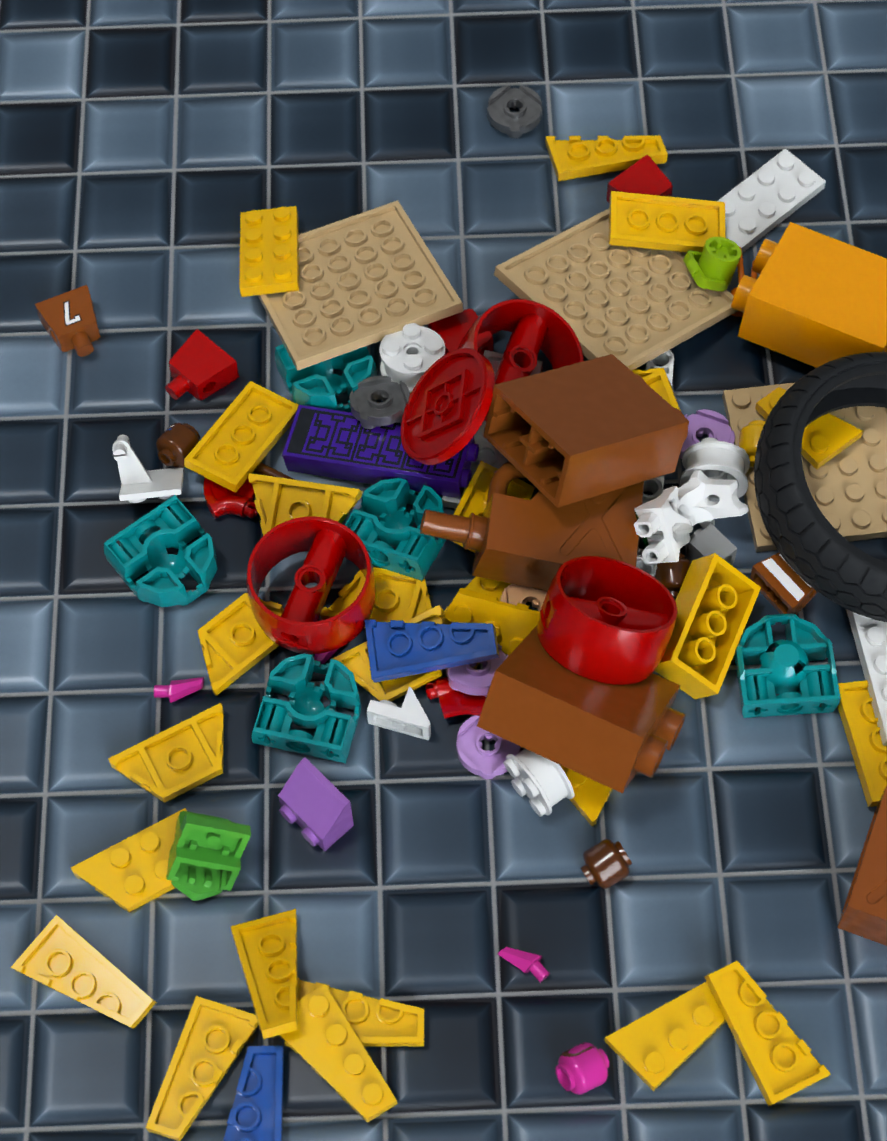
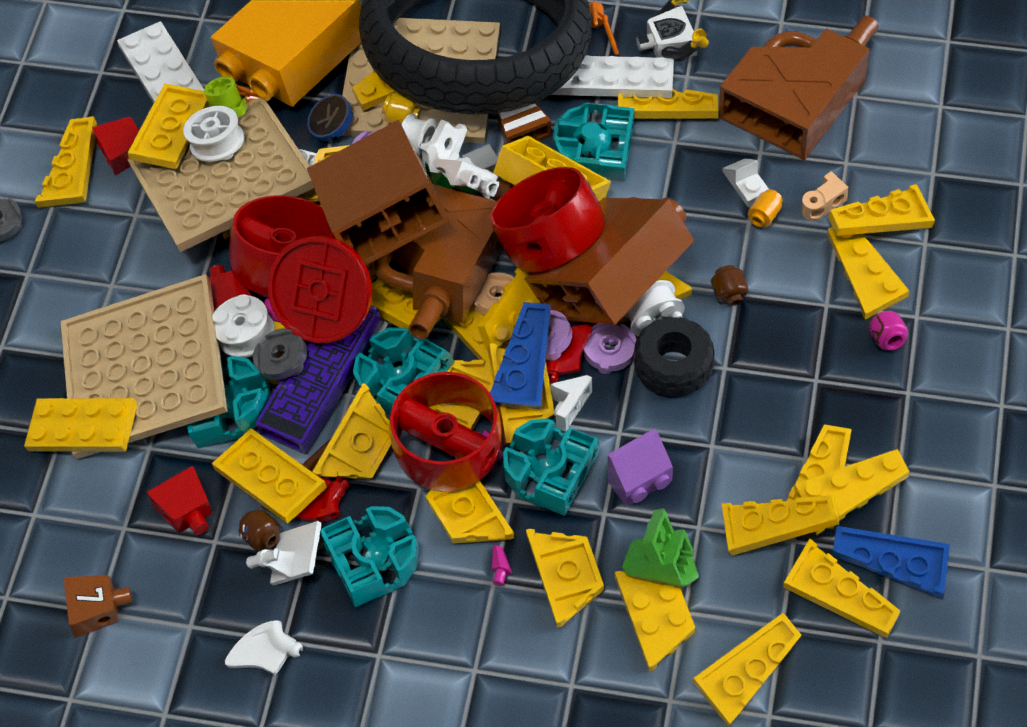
camera: 75 degrees left, 5 degrees down
(45, 487) = (264, 648): none -> white arm
(483, 787) = (679, 376): none -> black tyre
(525, 961) = (795, 354): dark pink bar -> none
(657, 262) = (213, 133): none -> white wheel
(734, 378) = (330, 117): none -> tile
(736, 887) = (765, 208): none -> light orange brick
(772, 958) = (826, 197): none -> light nougat leg
(780, 858) = (745, 180): none -> white slope

